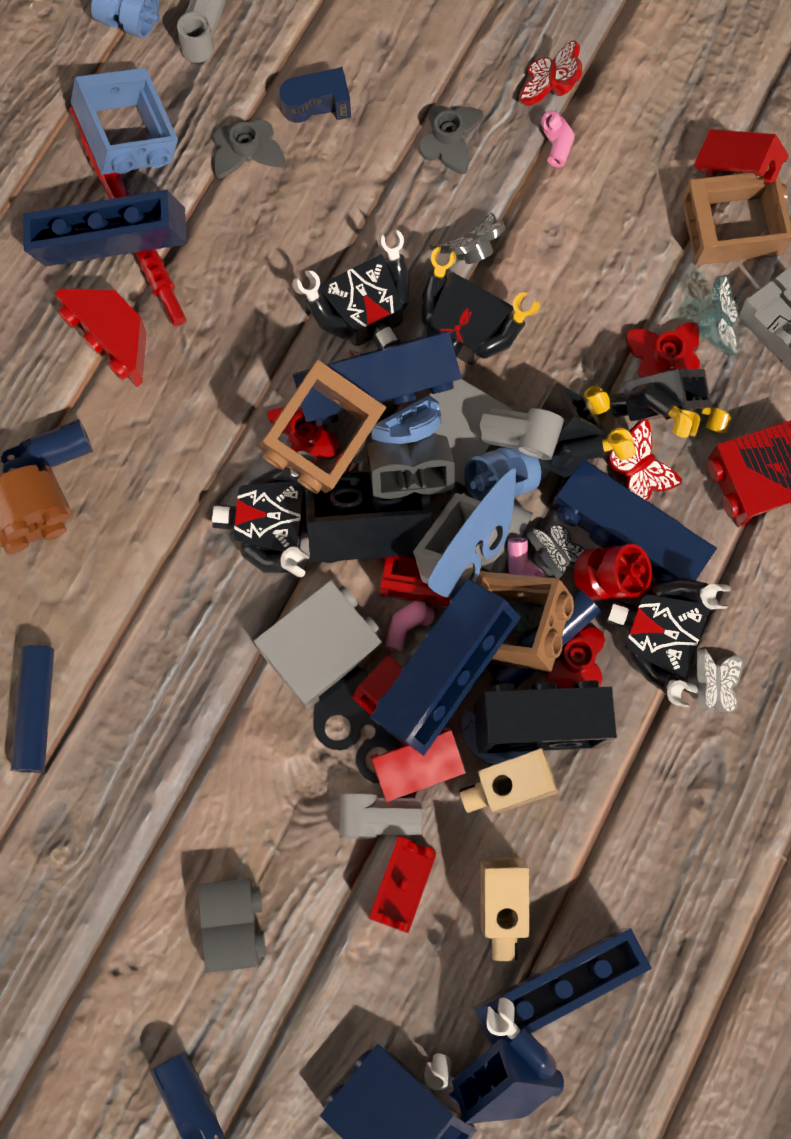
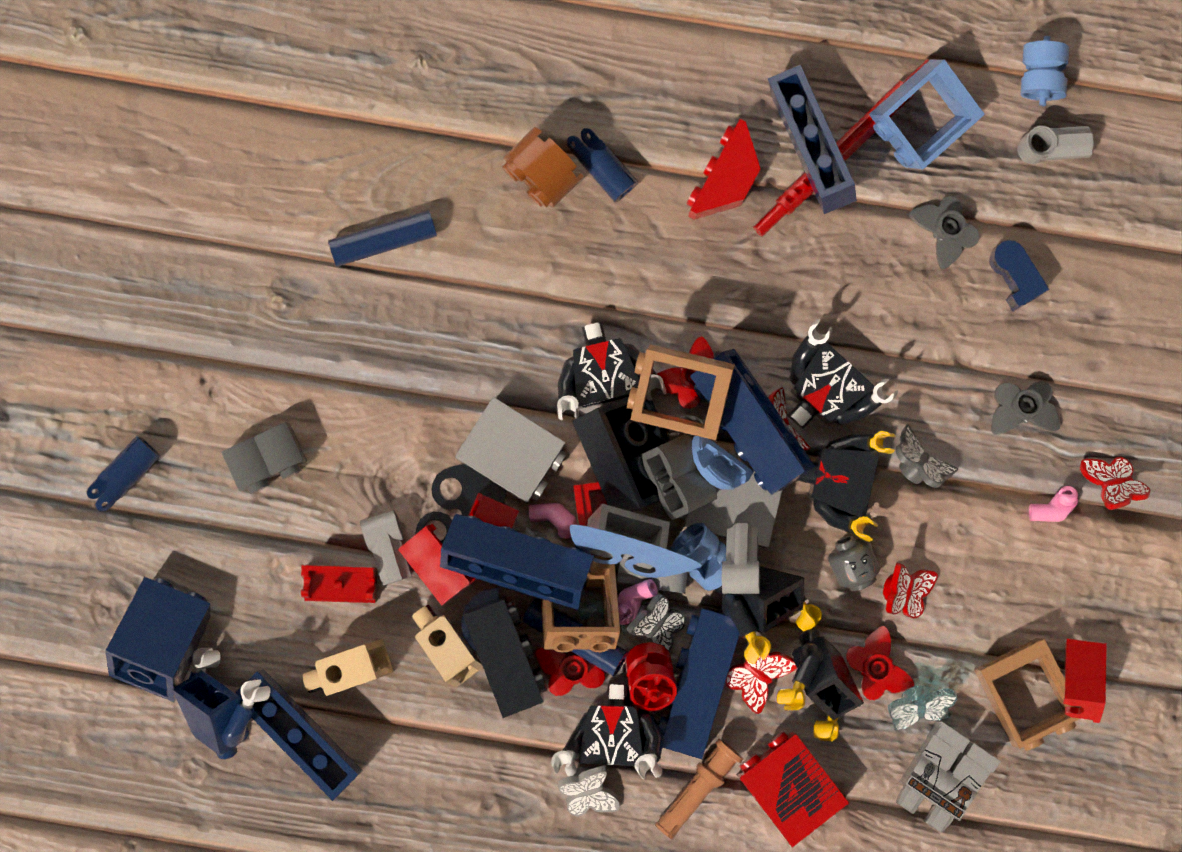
camera: 70 degrees right, 10 degrees up
(555, 336) = (854, 563): none -> dark grey head
(598, 296) = (906, 590): none -> red animal
(734, 552) = (708, 775): none -> nougat pin

